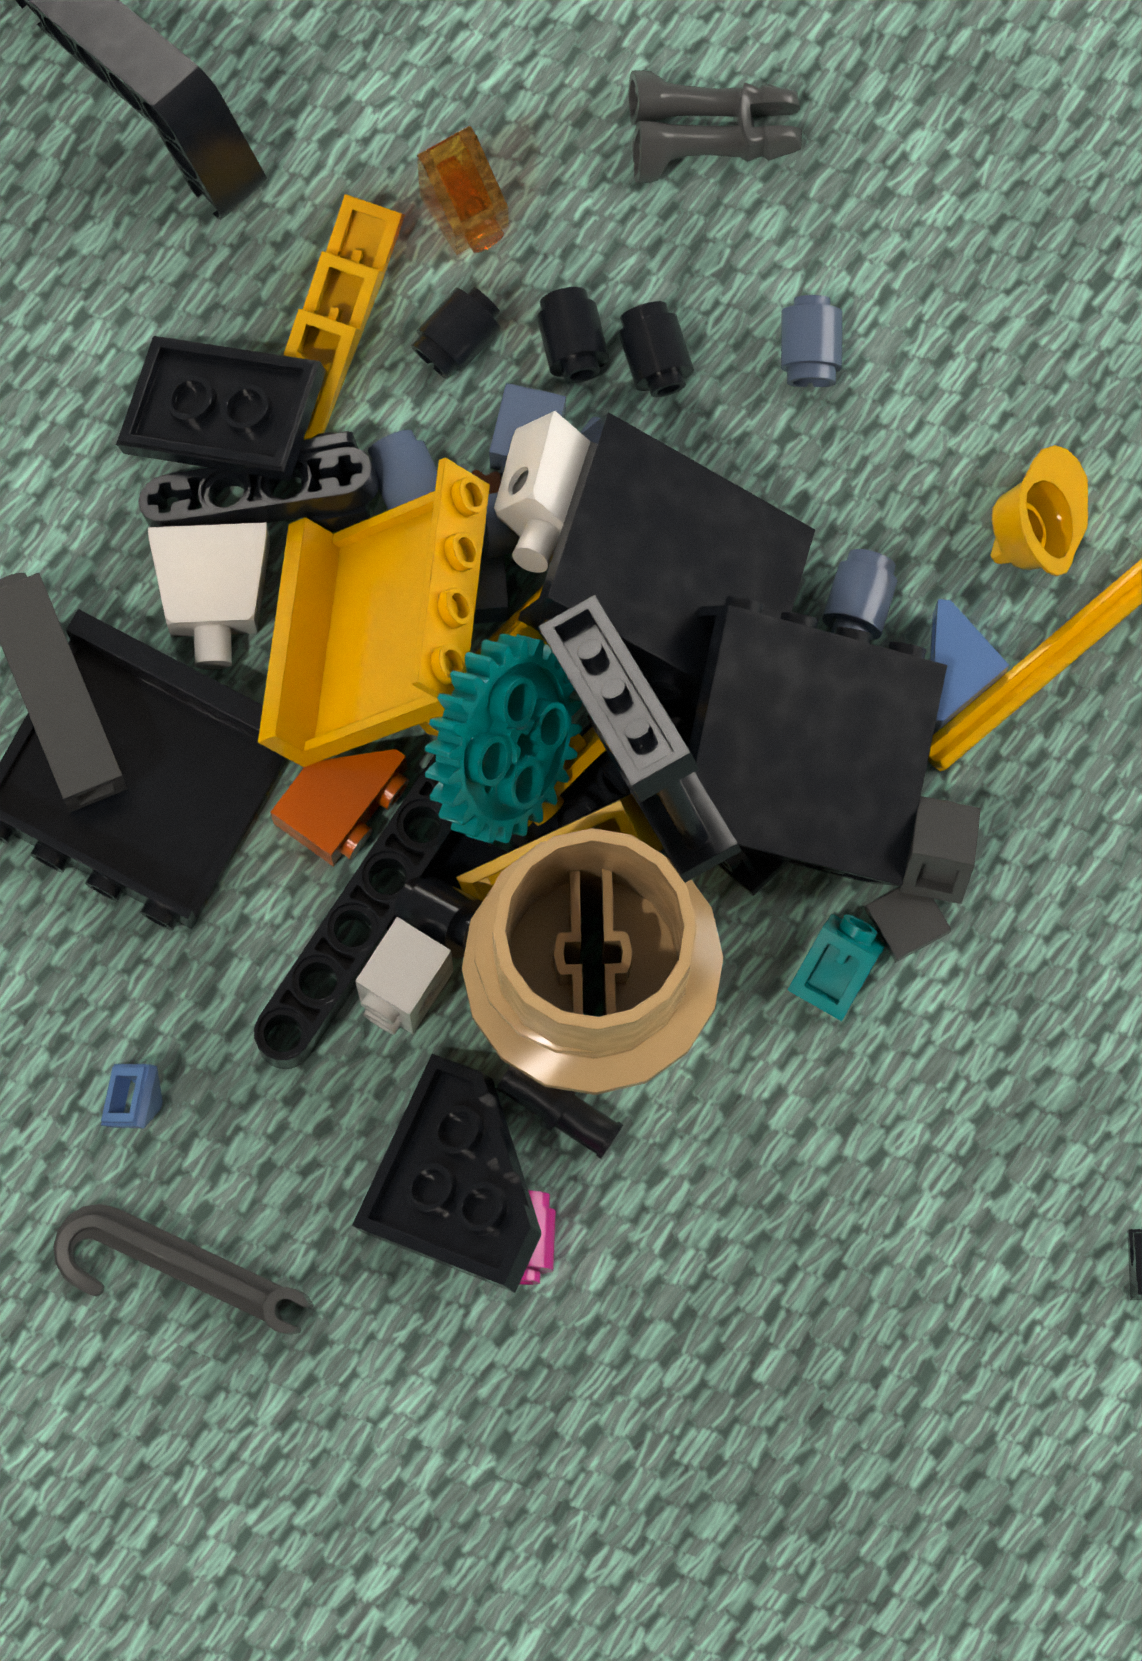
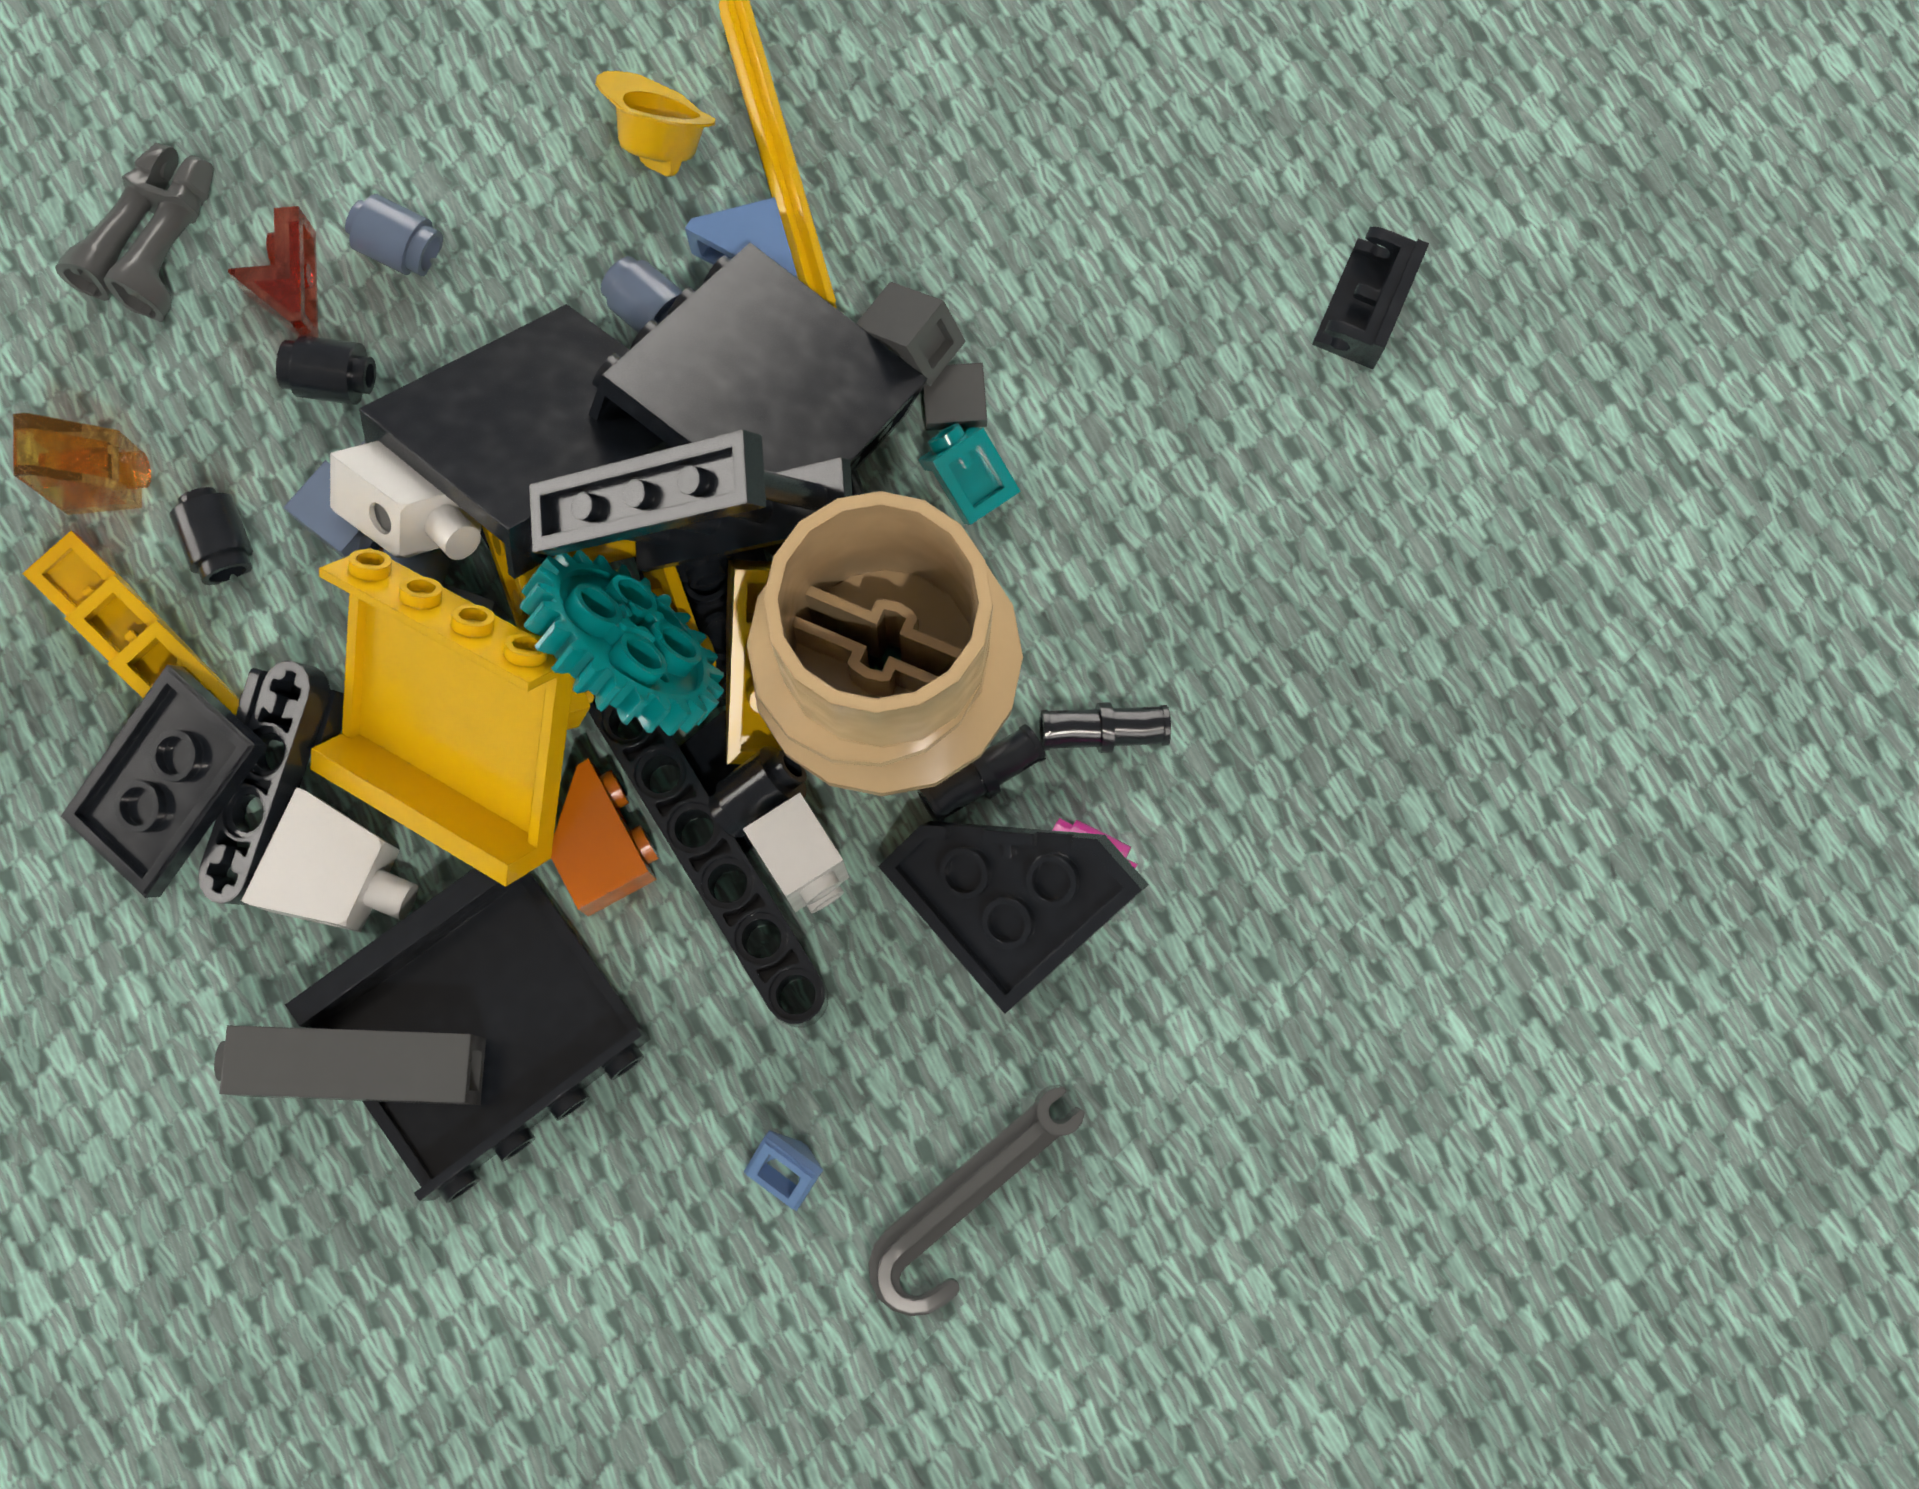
camera: 65 degrees left, 0 degrees up
(403, 468) = (313, 639): sand blue brick -> none
(572, 334) = (272, 435): black brick -> none
(654, 1198) = (1105, 727): none -> black pin
(715, 280) = (290, 283): none -> clear red slope

